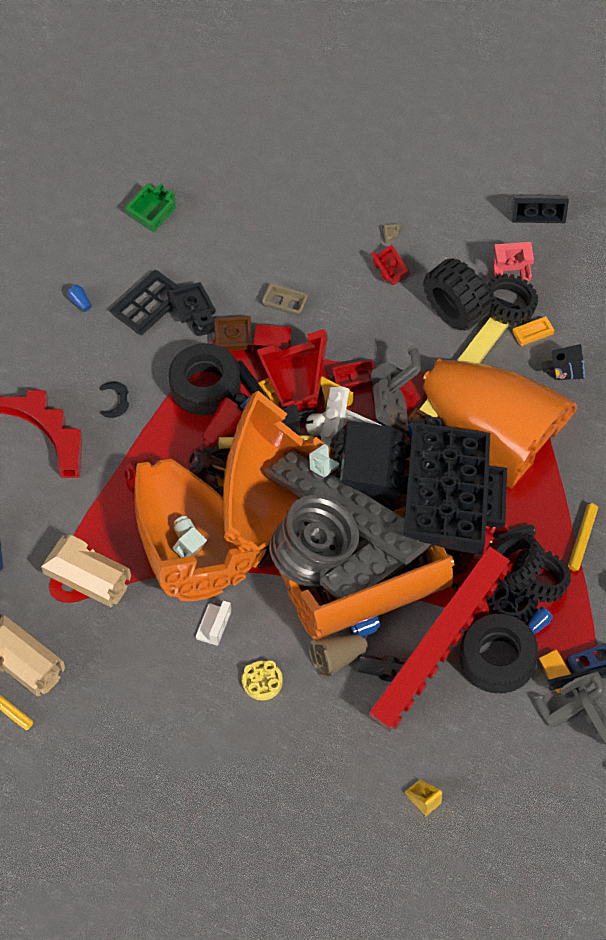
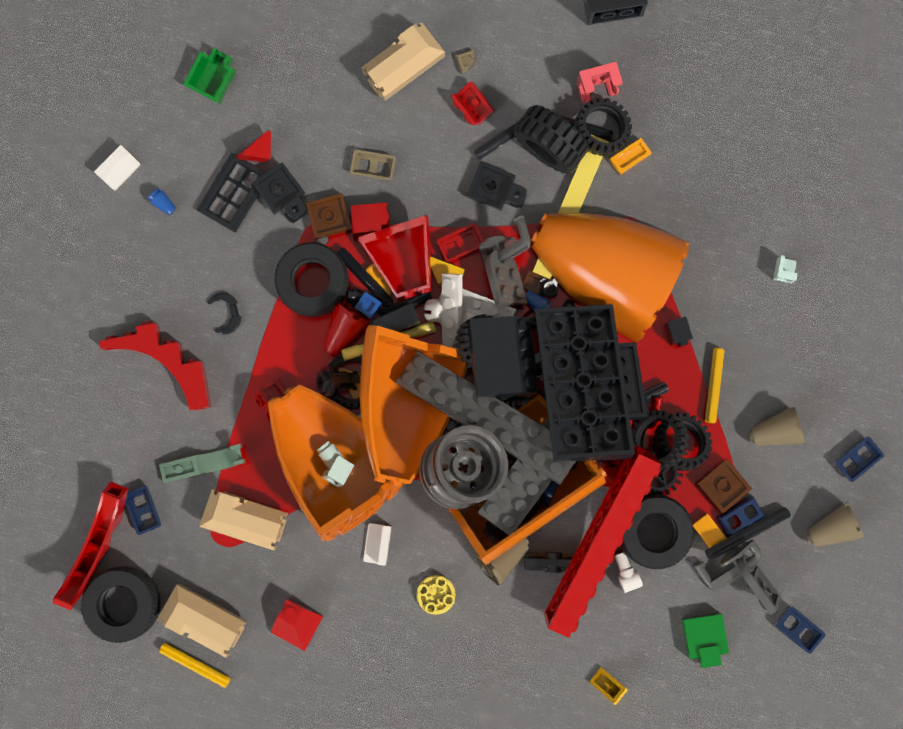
camera: 10 degrees left, 25 degrees up
(45, 265) = (117, 168): none -> white panel
(55, 521) = (201, 464): none -> sand green piece
(113, 680) = (296, 624): none -> red slope
(179, 269) = (258, 150): none -> red slope
(321, 463) = (453, 370): light aqua panel -> none
(332, 218) = (403, 61): none -> tan brick
(405, 300) = (495, 142): none -> black axle
(407, 335) = (505, 188): none -> black plate
(463, 697) = (628, 578): none -> white pin
(534, 768) = (705, 639): none -> green piece
(539, 620) = (686, 487): blue cone -> none
(554, 482) = (679, 331): none -> black brick
(566, 363) = (678, 193): black torso -> none
(578, 628) = (724, 486): none -> reddish brown plate

